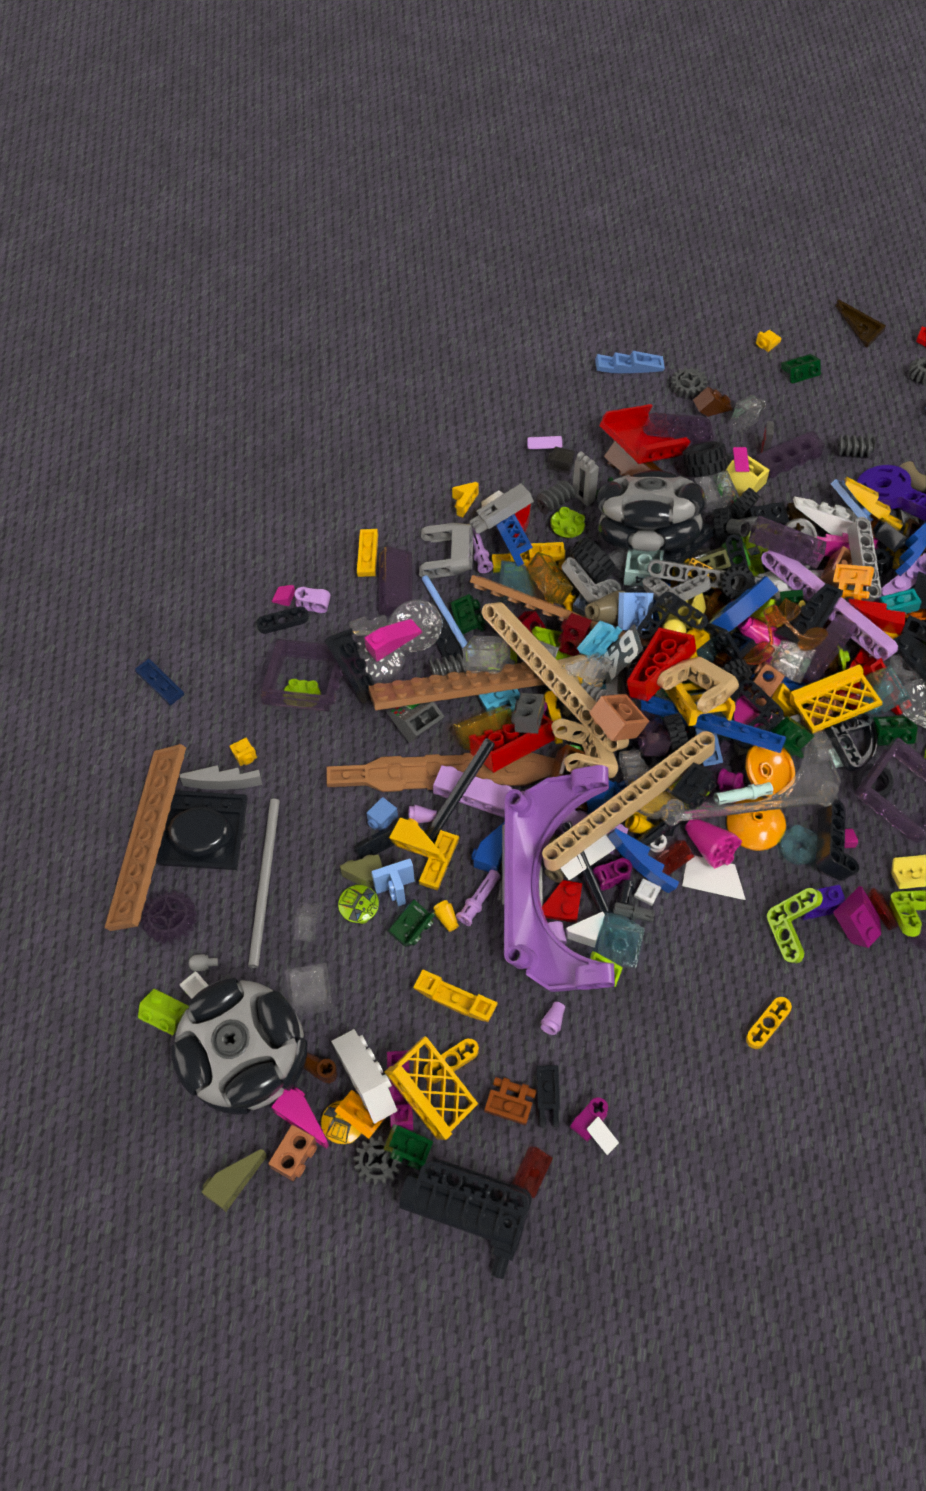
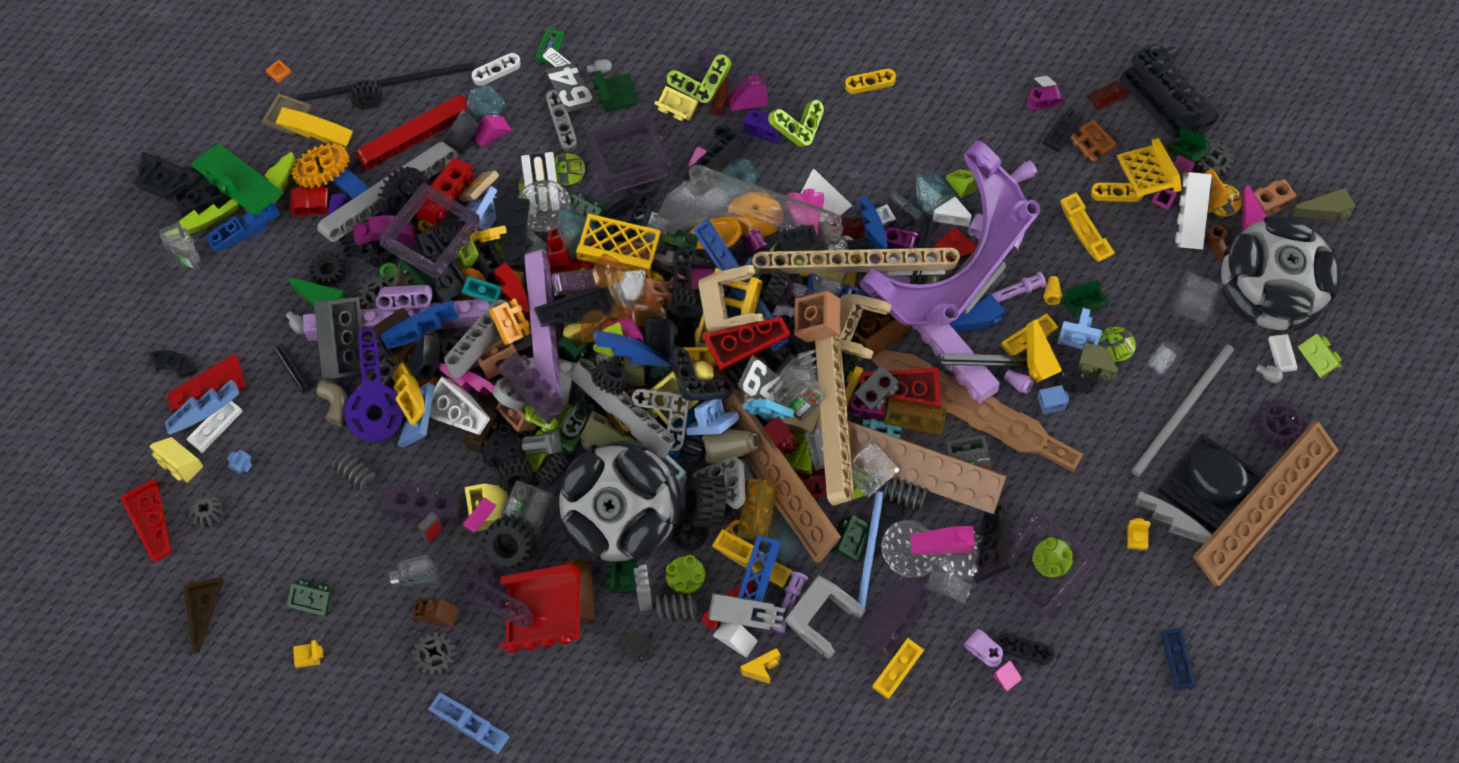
camera: 145 degrees left, 5 degrees up
(544, 442) = (637, 676): lavender slope -> none
(750, 792) = (737, 217): light aqua pin -> none

